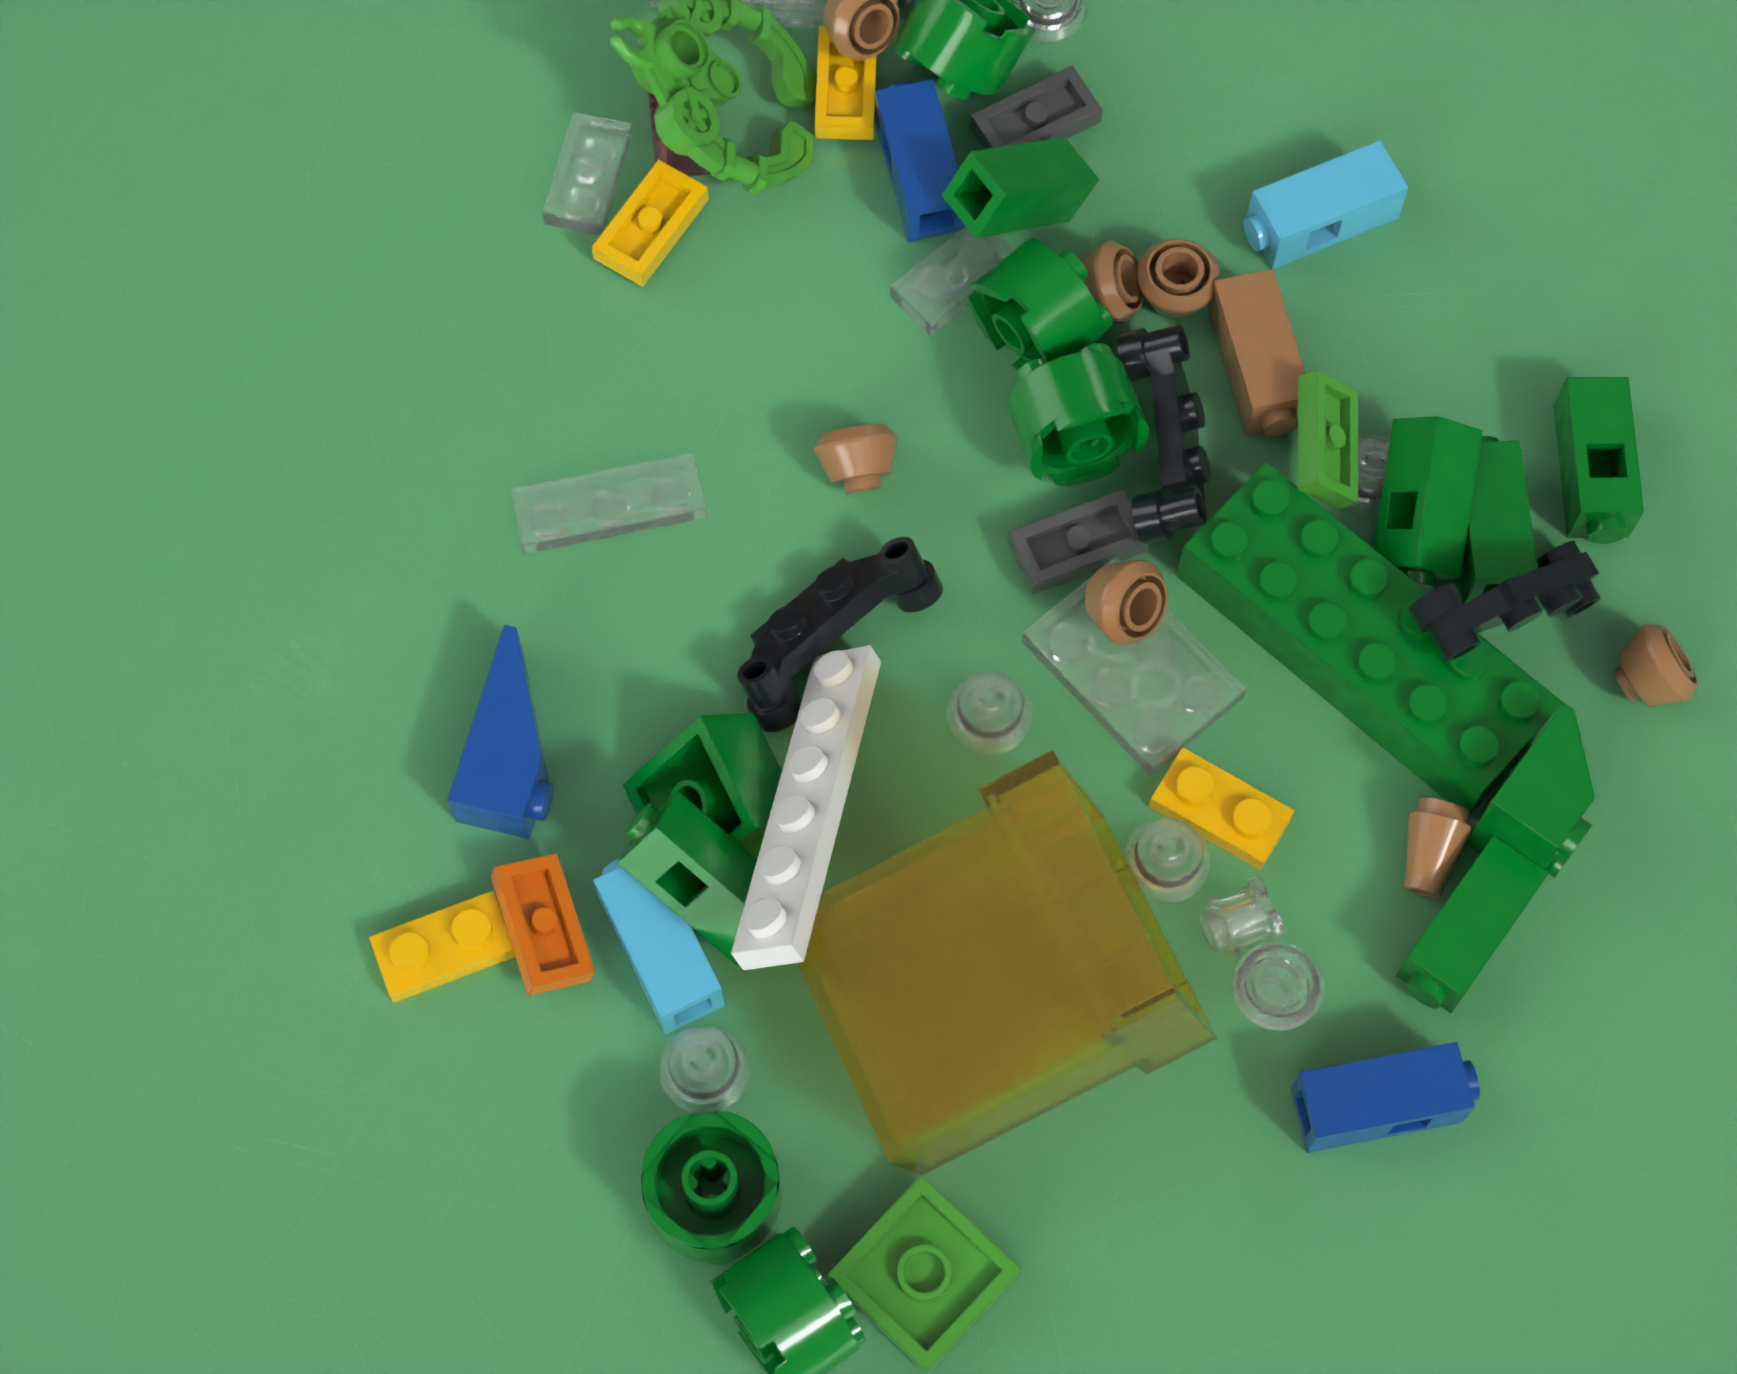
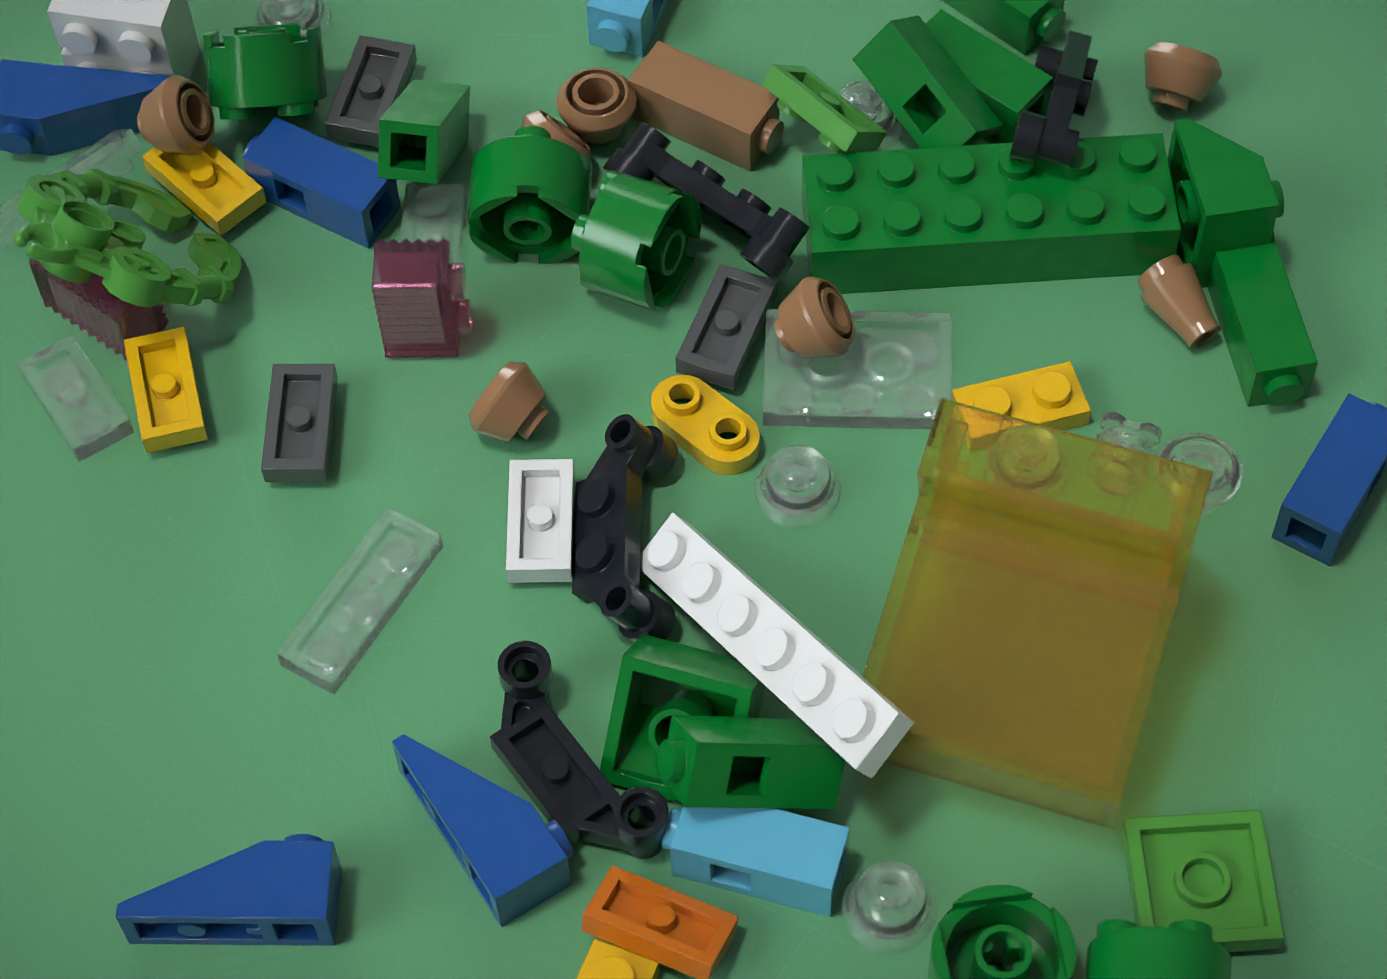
camera: 45 degrees left, 10 degrees down
(320, 642) = (253, 897): none -> blue slope
(600, 747) = (560, 772): none -> black plate
(709, 333) = (299, 423): none -> dark grey plate
(786, 561) = (540, 521): none -> white plate
(872, 316) = (420, 298): none -> clear pink brick
(982, 597) = (701, 421): none -> yellow plate

